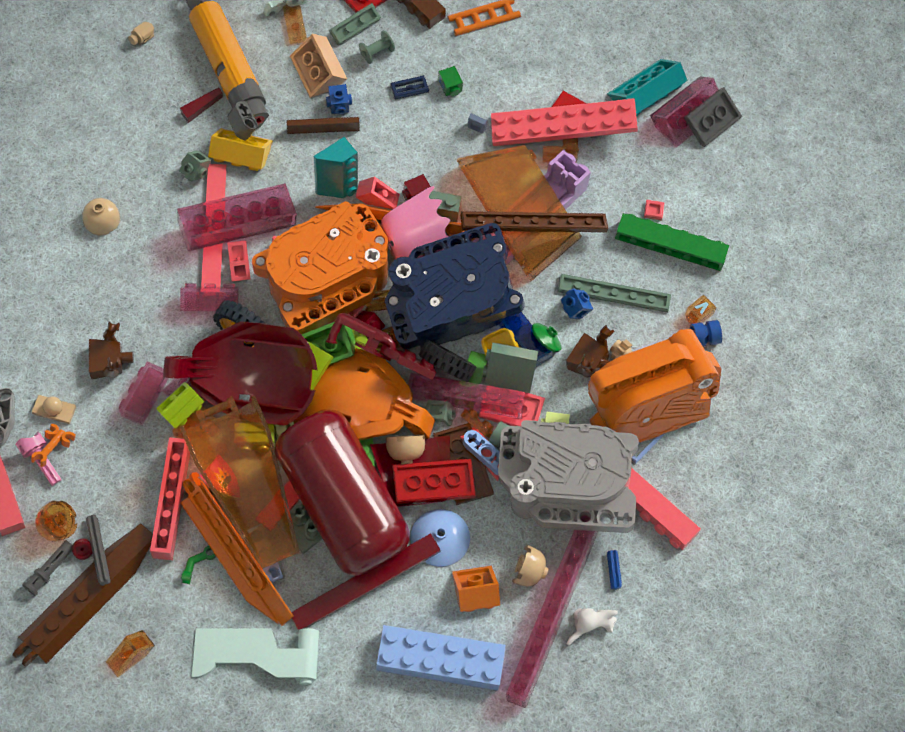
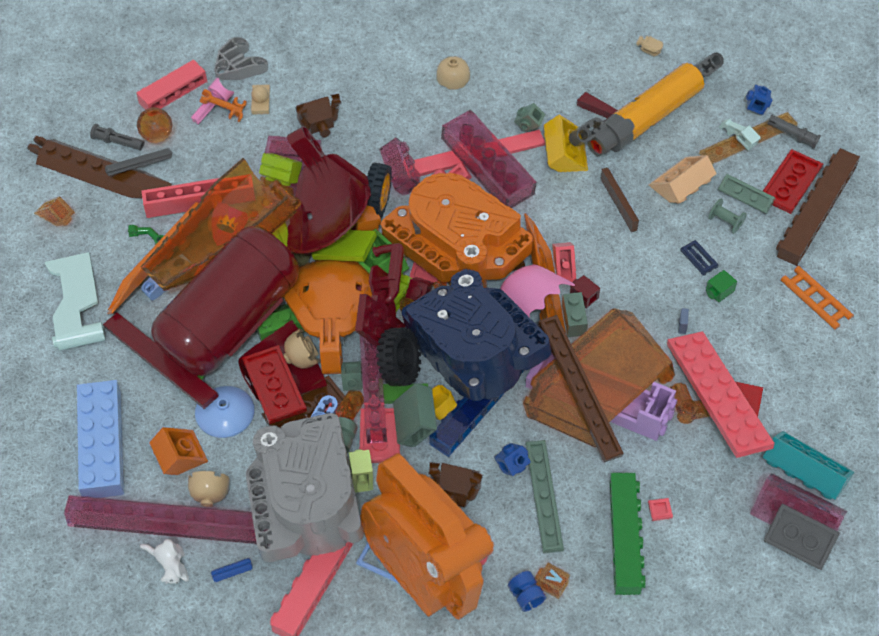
camera: 80 degrees right, 10 degrees down
(82, 549) = (137, 150): dark red tile -> none
(336, 170) = (564, 209): teal slope -> none
(338, 99) = (652, 202): blue brick -> none
(547, 337) = (457, 441): green dish -> none
(620, 348) = (477, 513): tan gear -> none

